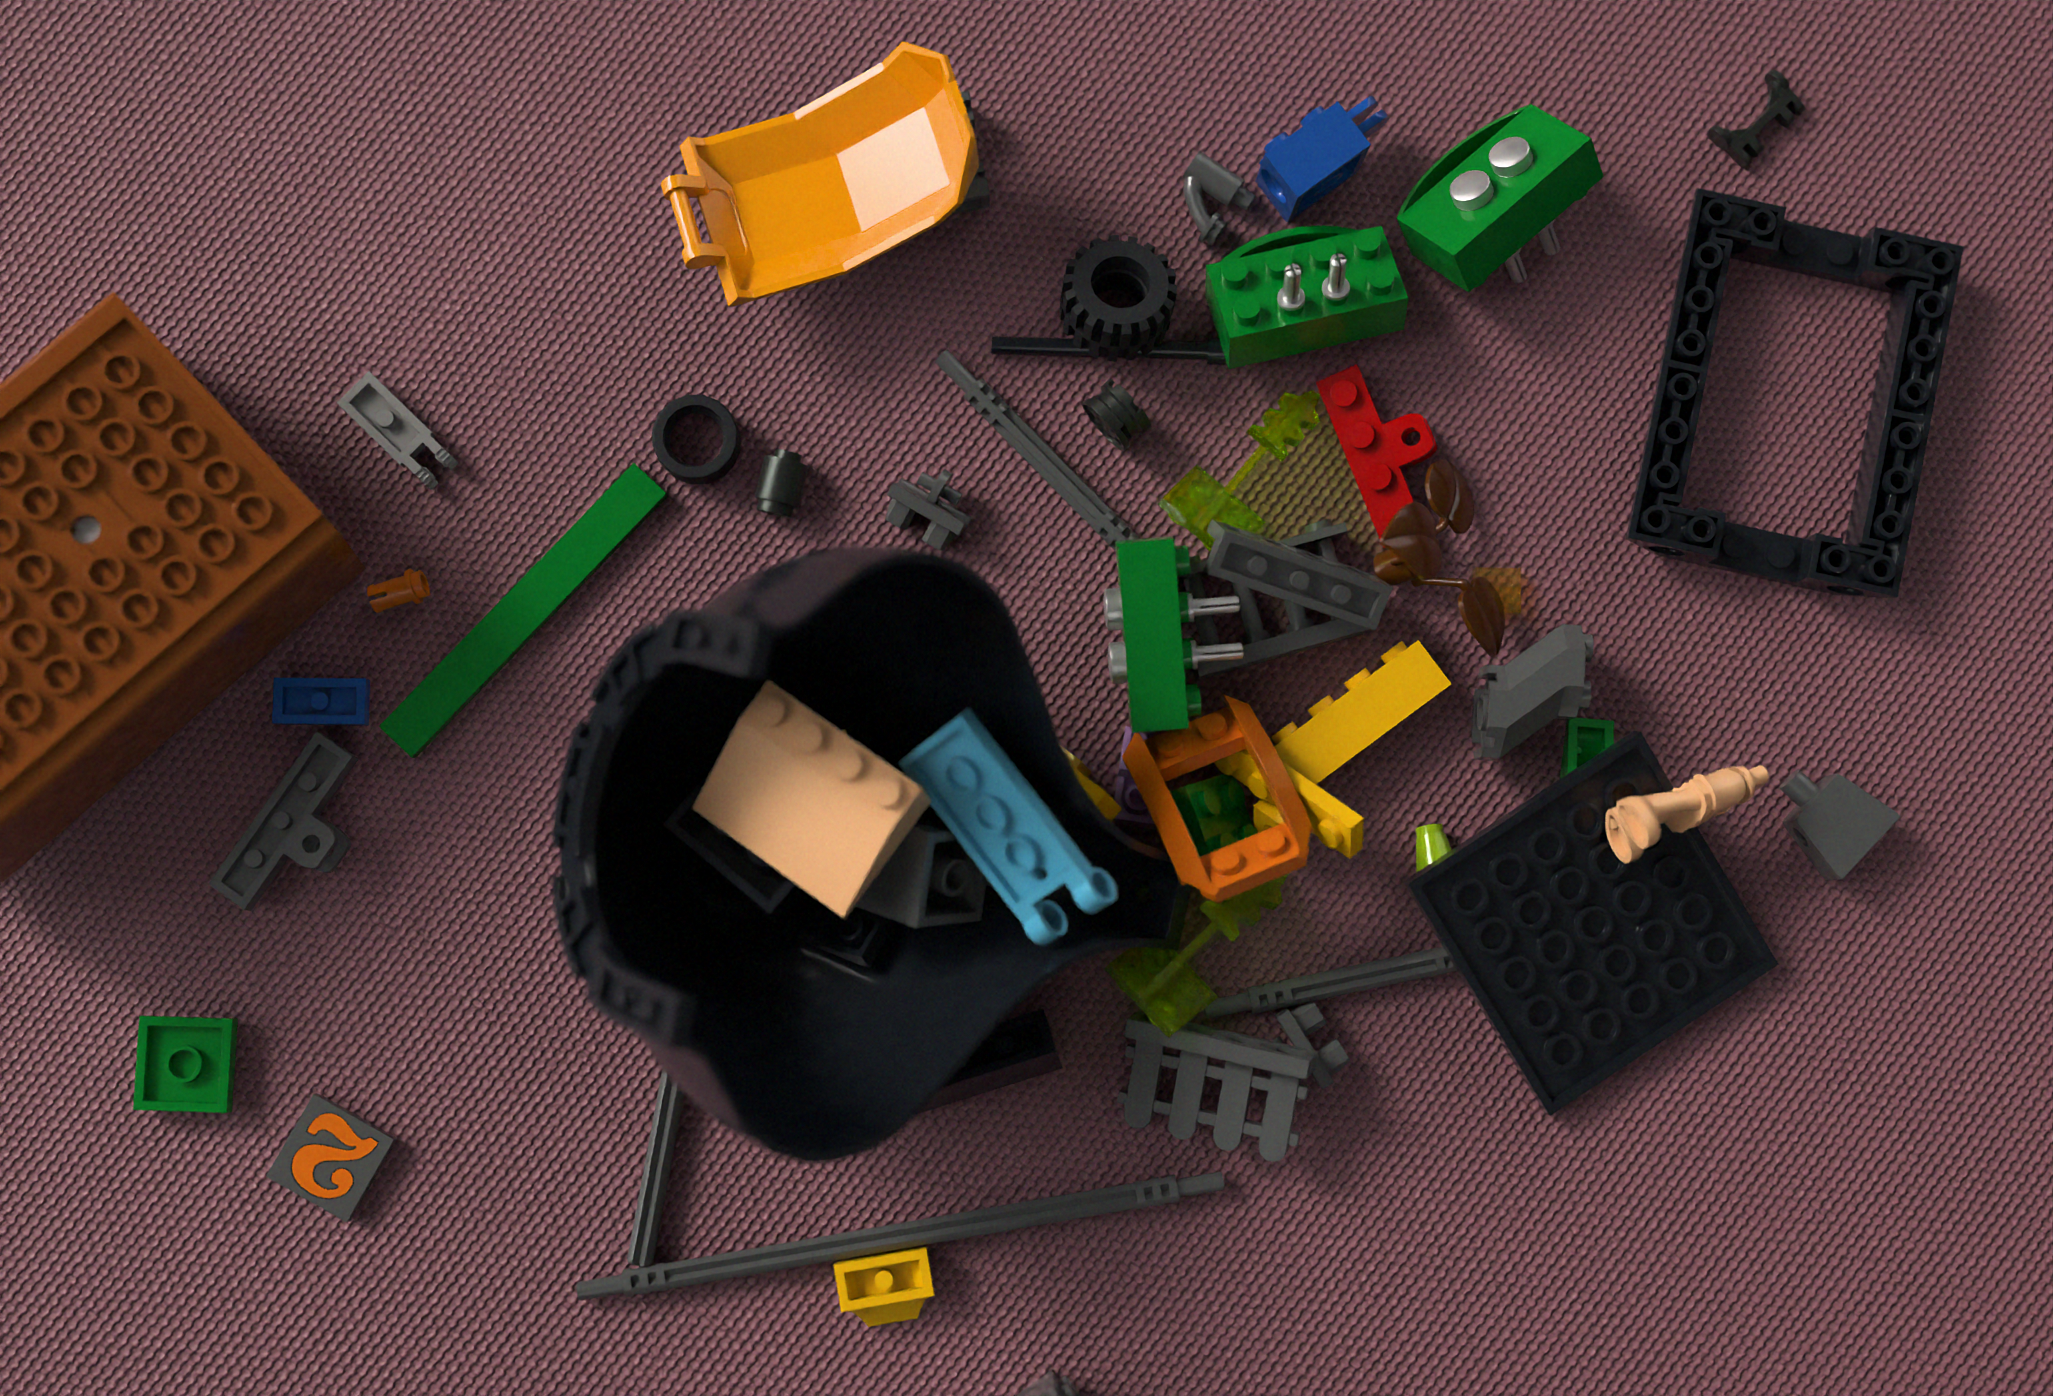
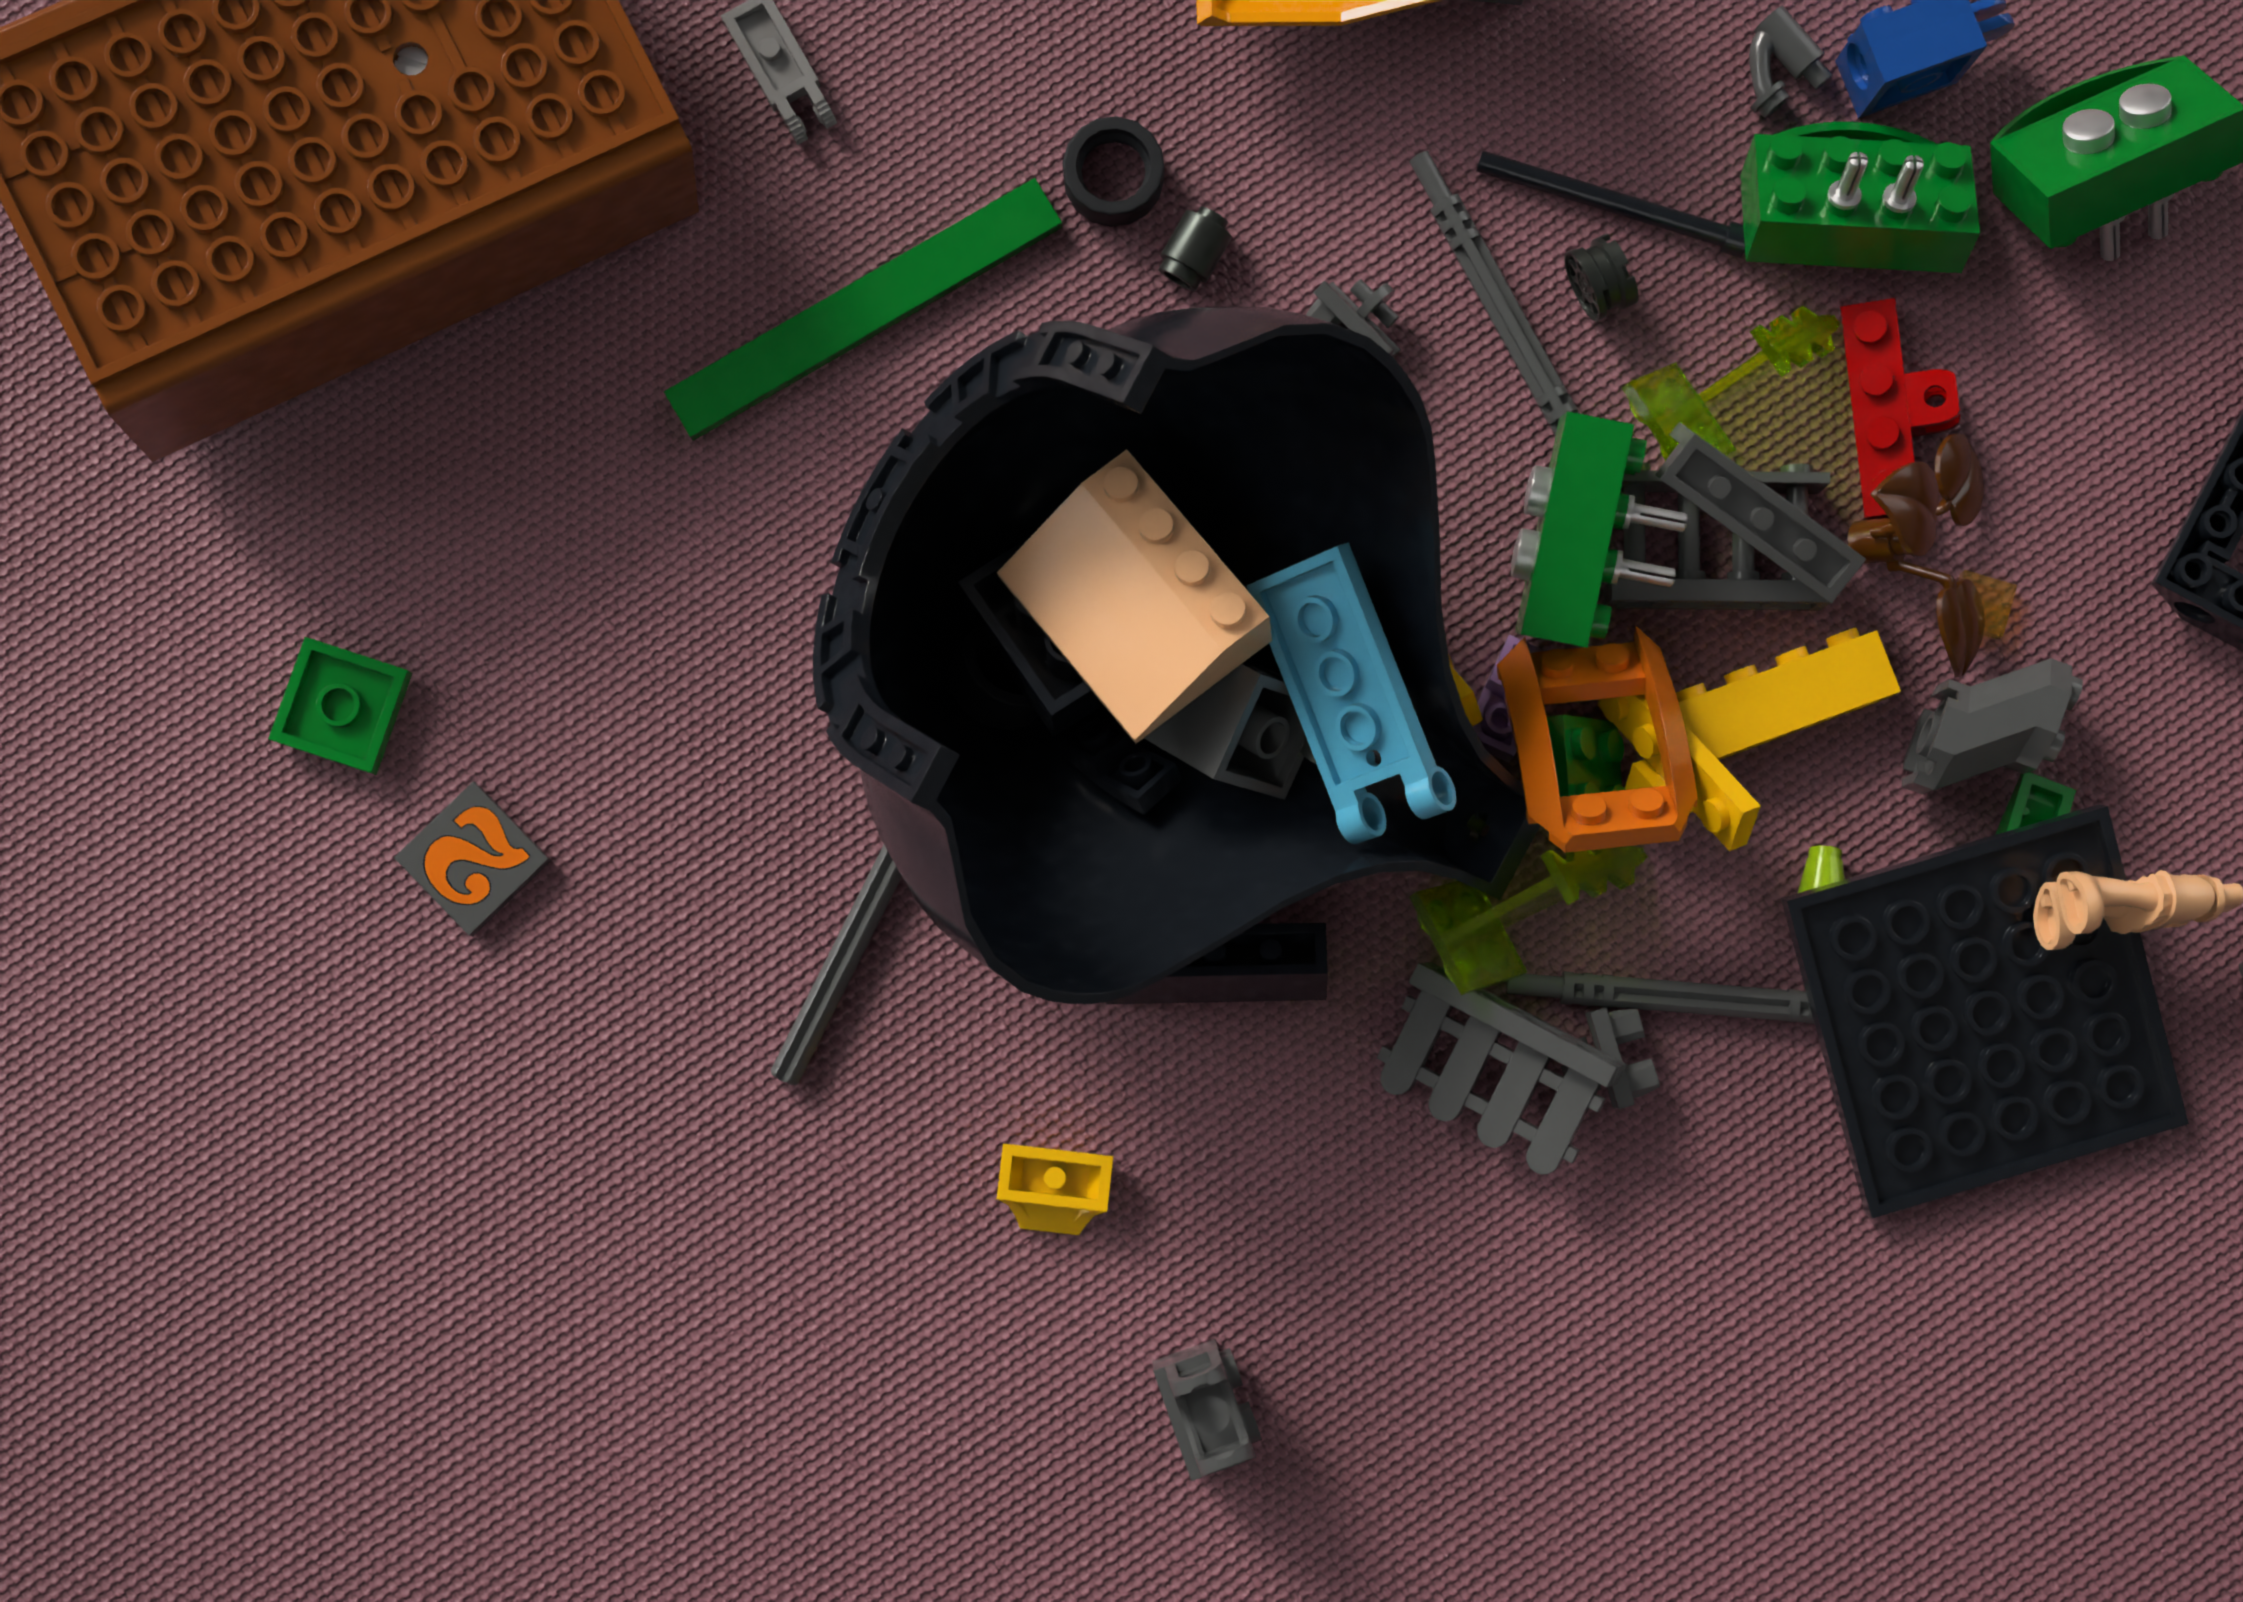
camera: 25 degrees right, 0 degrees up
(290, 826) = (532, 474): dark grey plate -> none
(321, 701) = (607, 345): blue plate -> none
(400, 590) = (729, 247): orange pin -> none
(899, 1236) = (1089, 1136): dark grey axle -> none
(1124, 268) = (1657, 113): black tyre -> none

